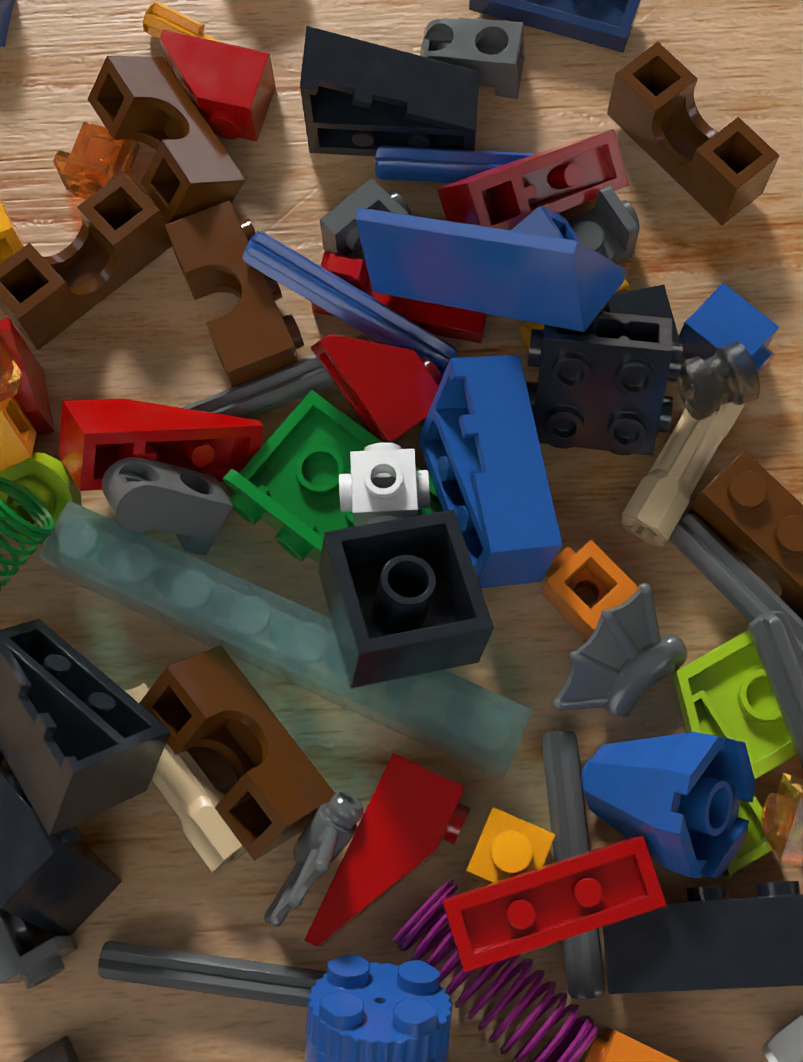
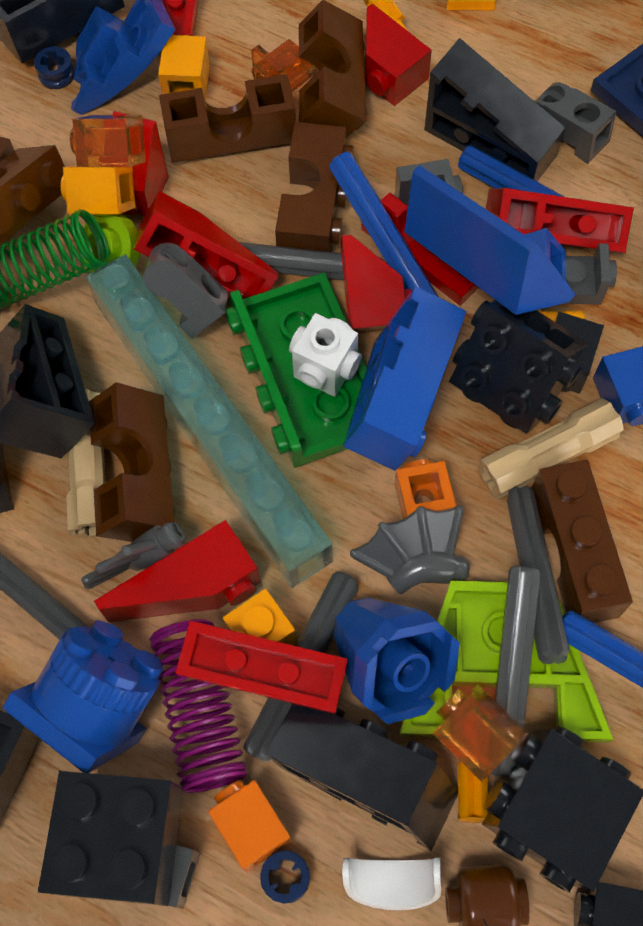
camera: 30 degrees right, 5 degrees down
(403, 598) = (287, 418): black brick -> none
(718, 380) = (597, 403): clear smoke wheel -> none

